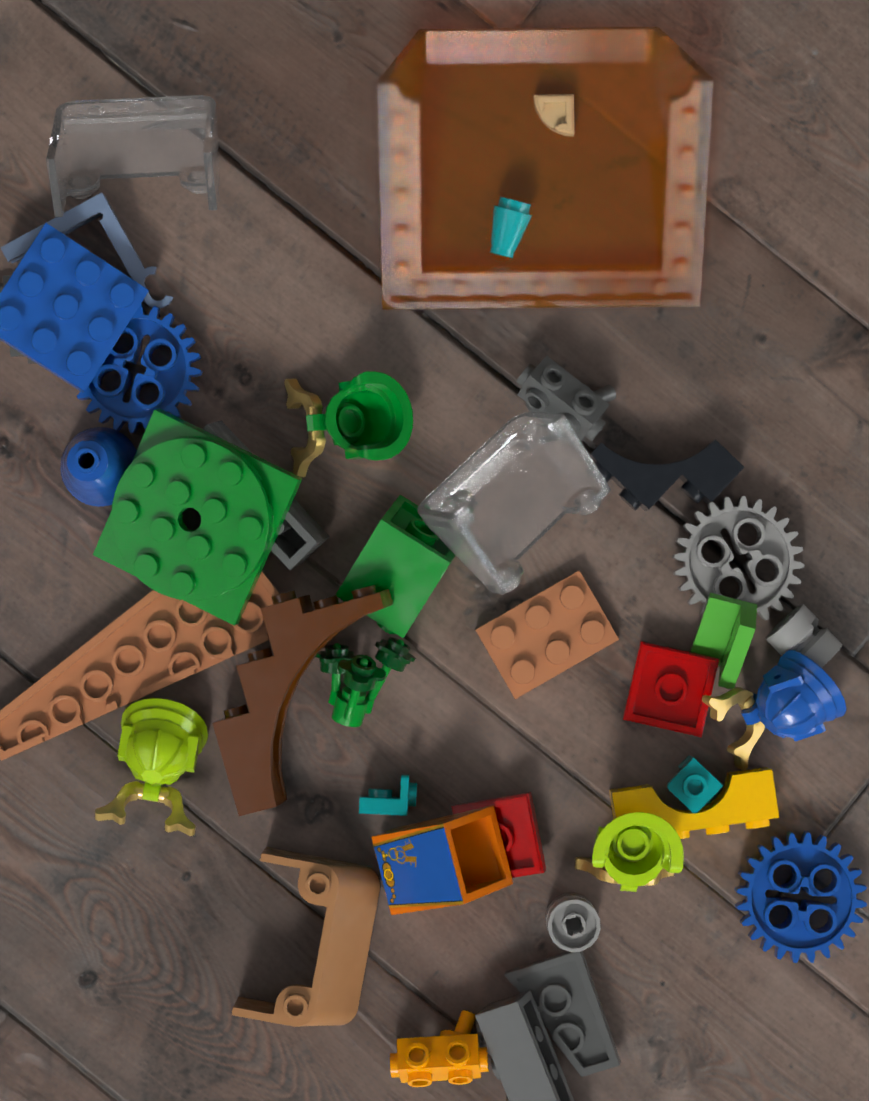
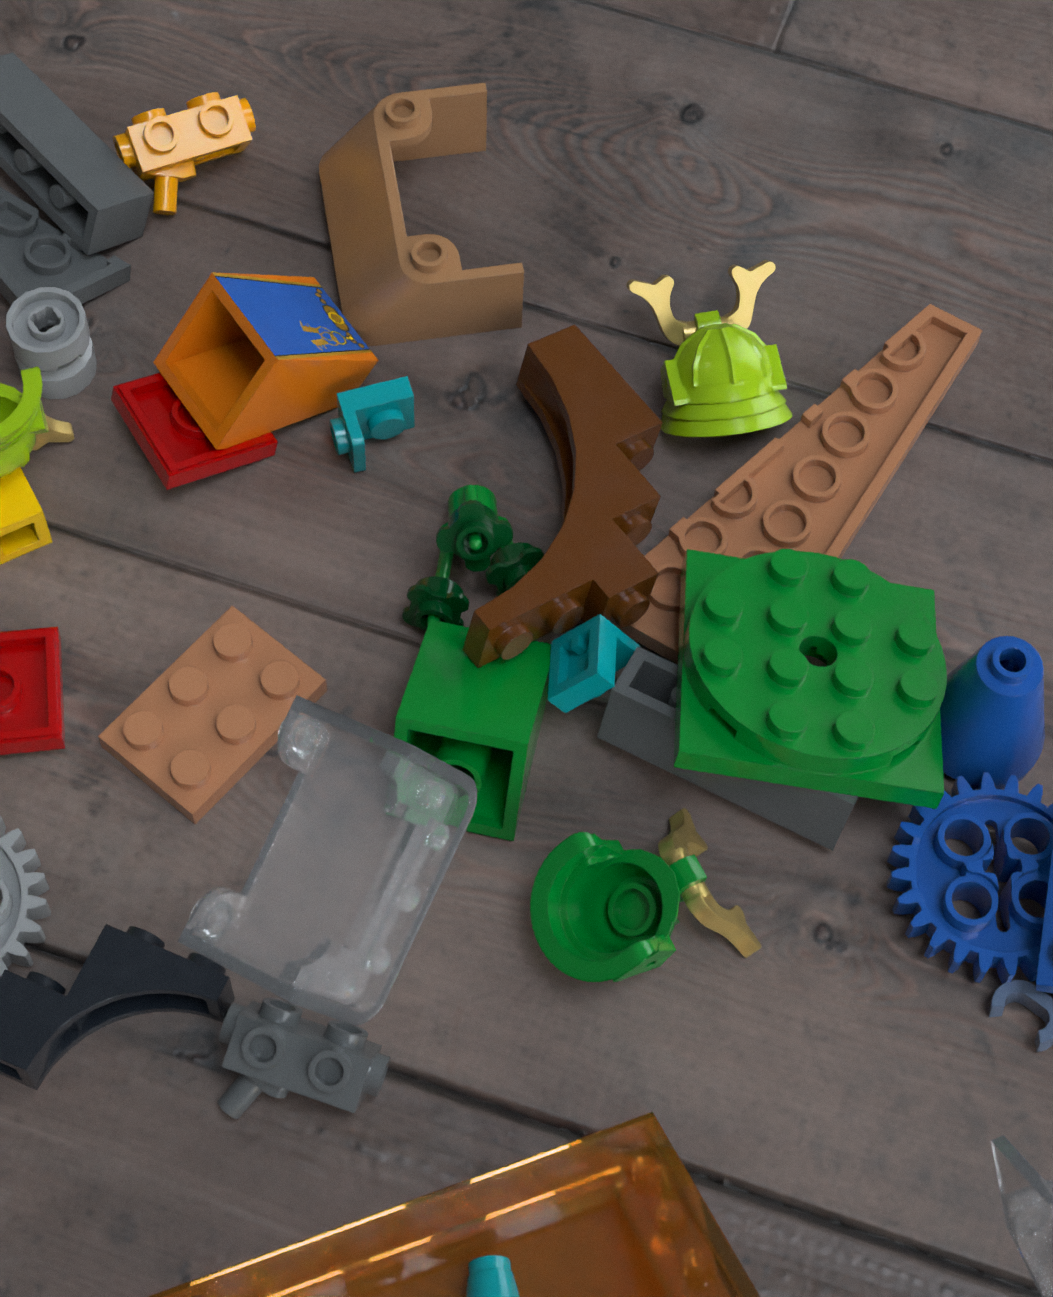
camera: 160 degrees right, 25 degrees down
(324, 570) = (586, 662): none -> teal bracket

